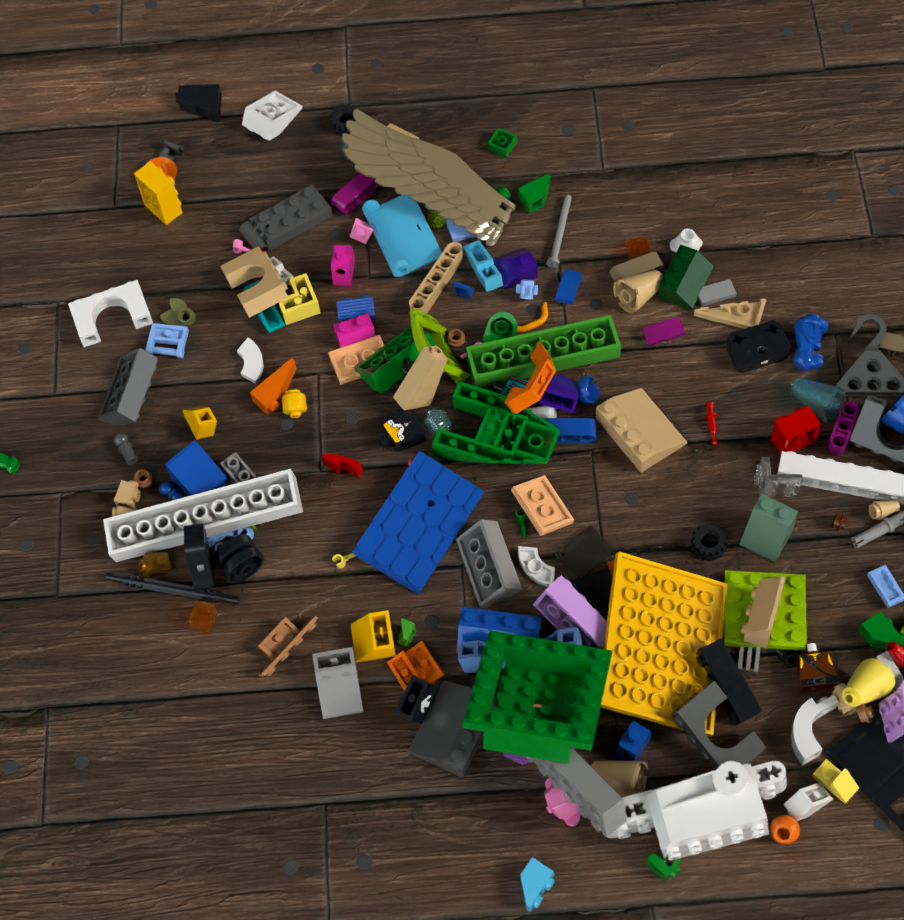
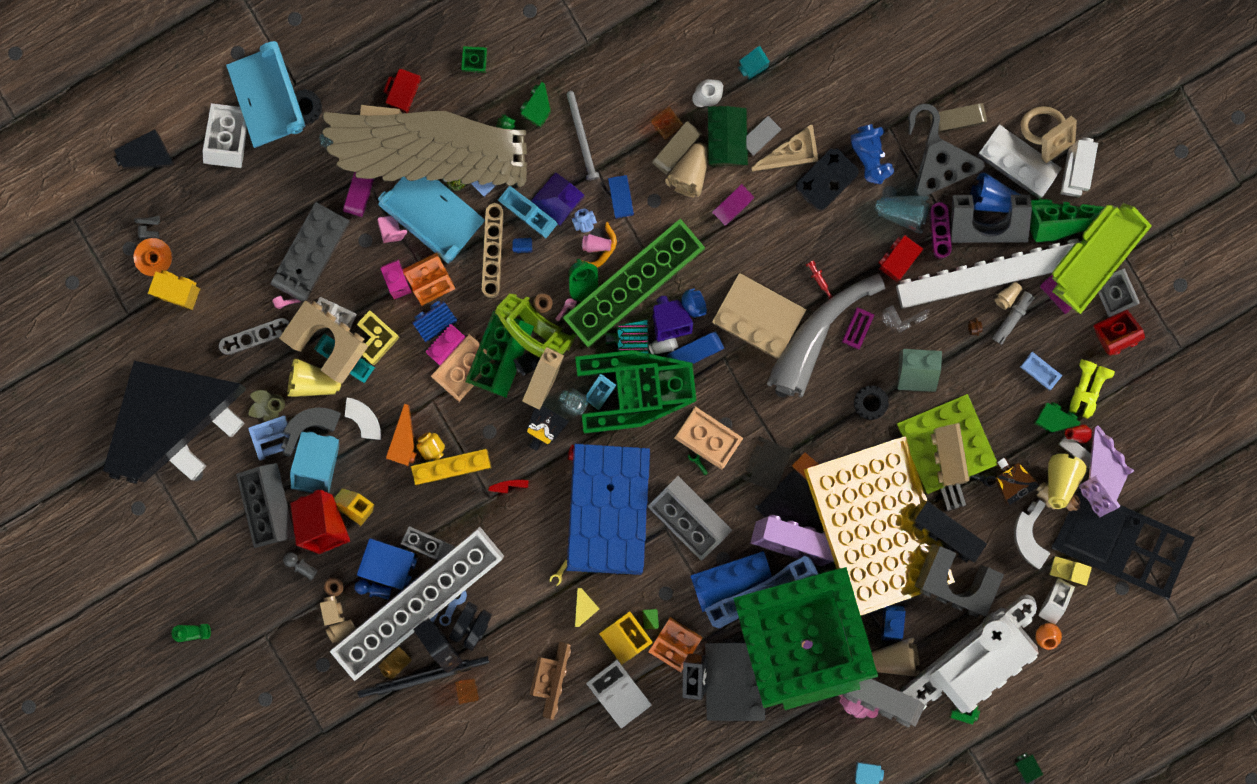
camera: 30 degrees left, 25 degrees up
(88, 278) = (161, 416): none -> black slope
(161, 417) = (318, 522): none -> red slope
(187, 373) = (314, 462): none -> medium azure slope
(201, 335) = (314, 417): none -> dark grey arch
(202, 265) = (254, 333): none -> light grey beam
(225, 308) = (310, 381): none -> light yellow cone
(301, 426) = (451, 467): none -> yellow brick
(320, 97) = (272, 102): none -> medium azure door
(349, 596) = (585, 607): none -> light yellow slope
(370, 278) = (429, 279): none -> orange slope
(435, 134) = (402, 90): none -> red piece
(467, 423) = (600, 391): none -> medium azure slope
(524, 397) = (653, 327): orange slope -> none
(525, 310) = (595, 244): none -> bright pink cone
(535, 567) = (731, 500): white tile -> none
(662, 470) = (798, 359): none -> light grey brick
(715, 487) = (851, 343): none -> magenta tile
(738, 232) = (753, 63): none -> teal slope

